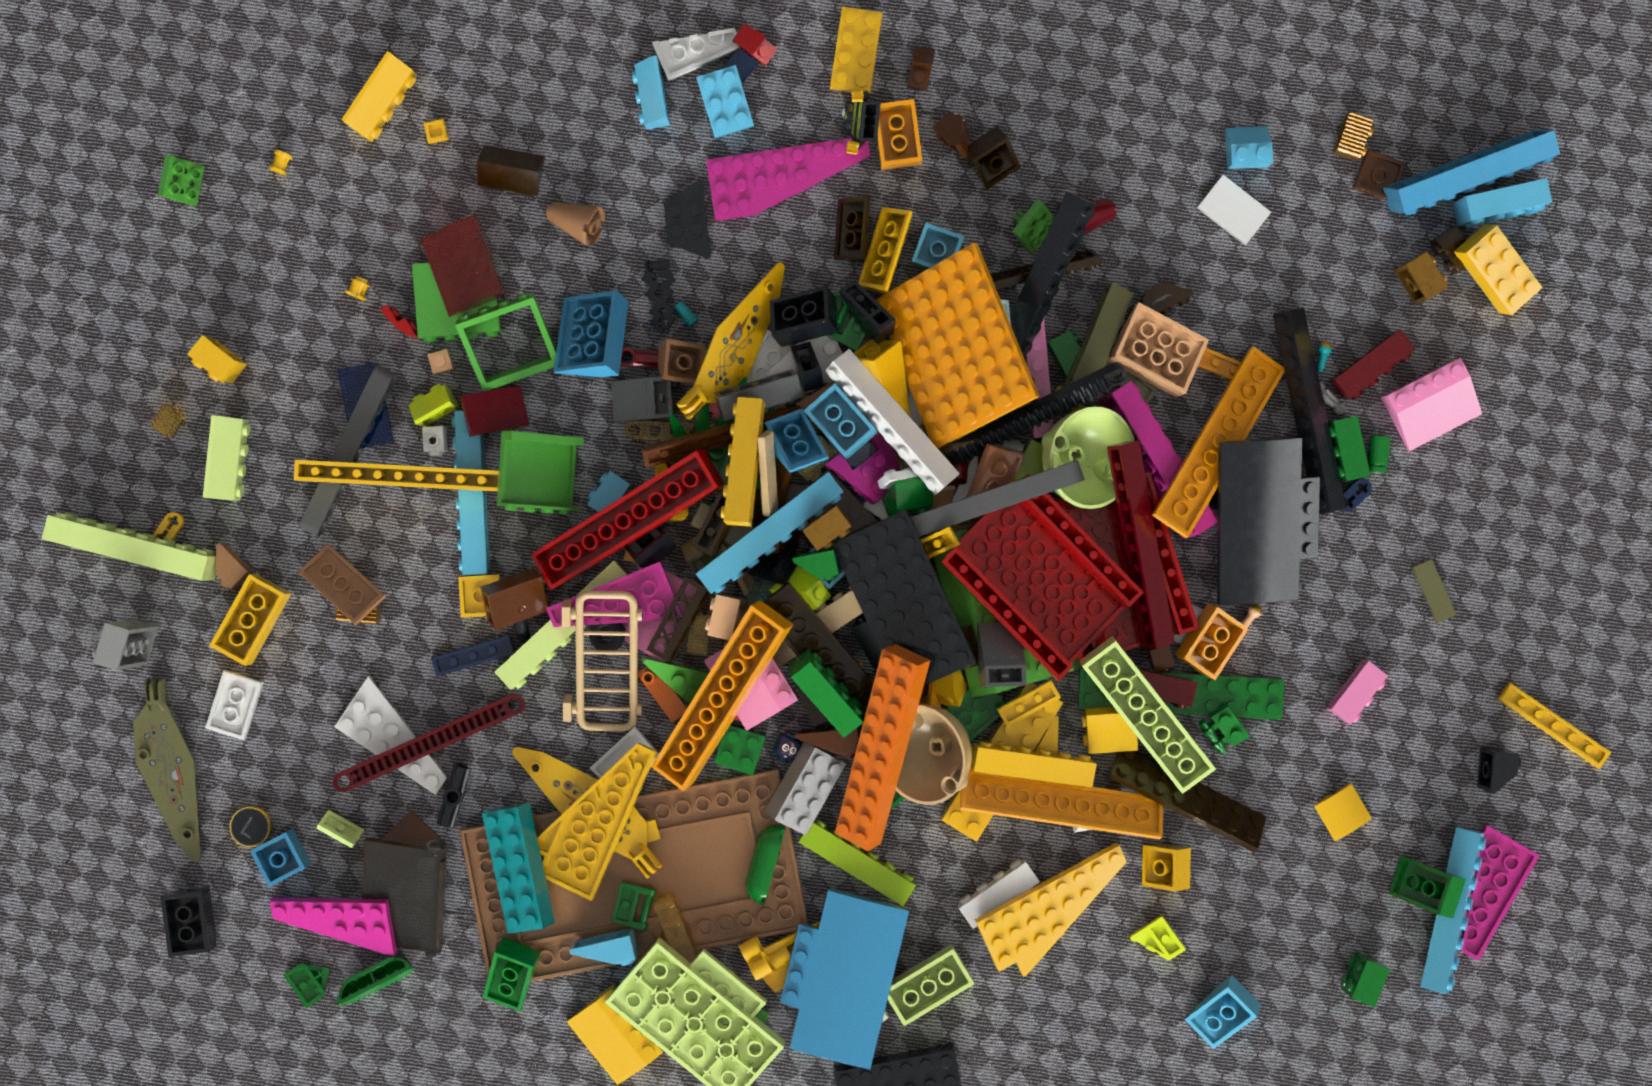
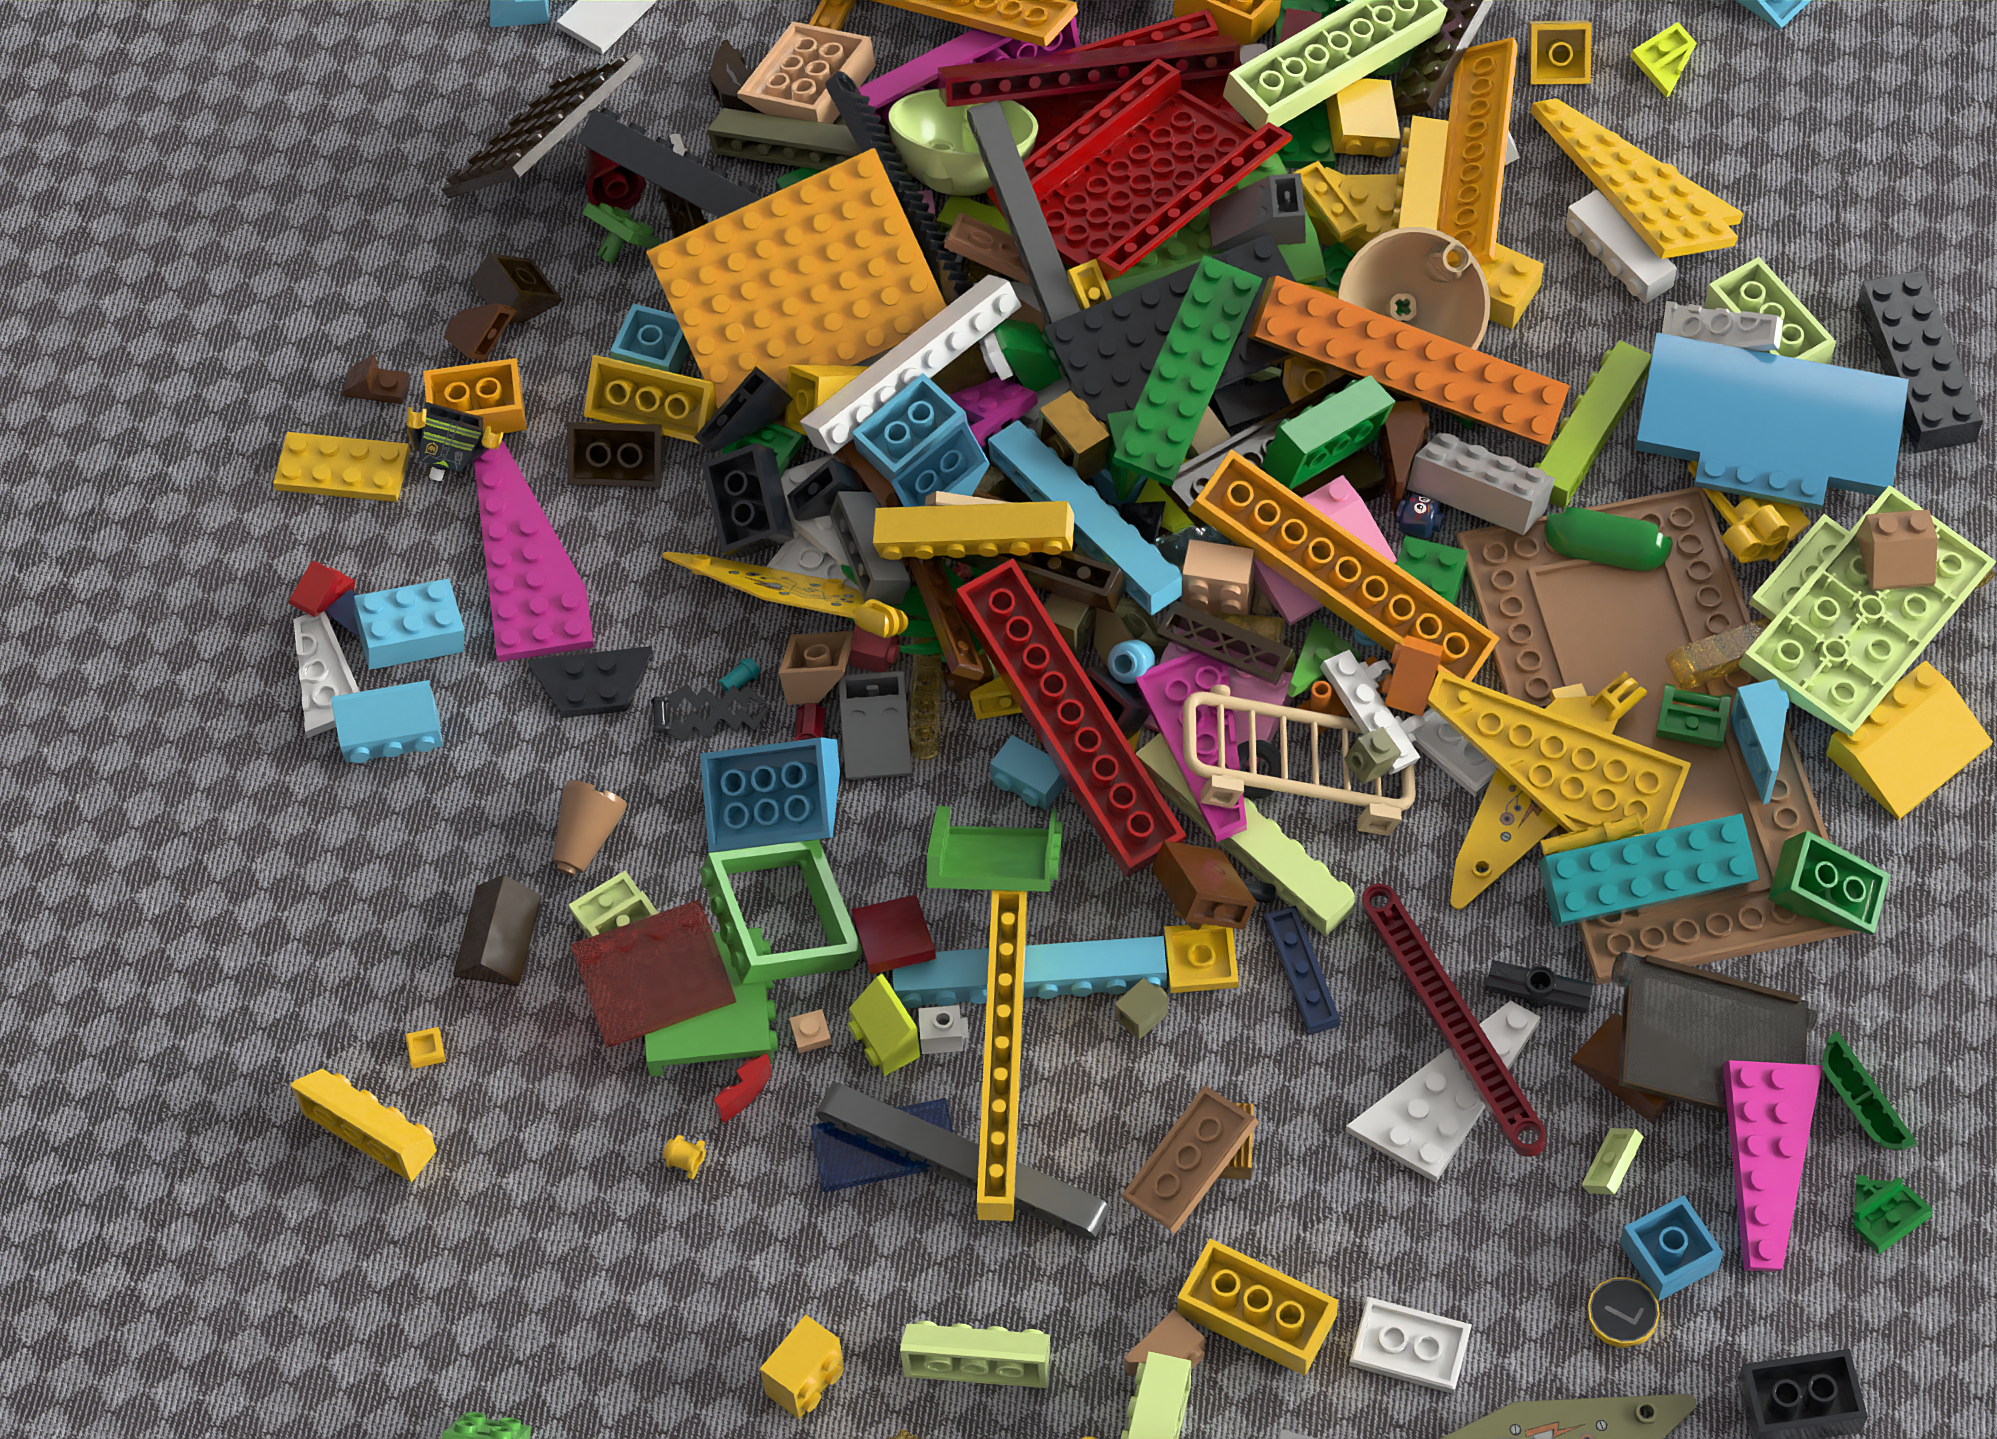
camera: 85 degrees left, 30 degrees down
(280, 162) = (463, 1285): yellow bush -> none
(443, 559) = (1142, 1008): none -> olive brick
(515, 241) = (611, 906): none -> yellowish green brick
(543, 843) = (1601, 833): none -> yellow pin
(601, 706) = (1372, 755): none -> olive brick
(623, 716) = (1357, 689): none -> white hinge
(654, 735) = (1413, 675): none -> orange brick
(672, 559) = (1130, 660): none -> medium azure head
(729, 1047) = (1898, 549): none -> medium nougat slope
(865, 603) = (1187, 371): none -> green plate
(918, 945) = (1723, 327): none -> white wing
(1103, 168) = (541, 126): none -> dark brown plate

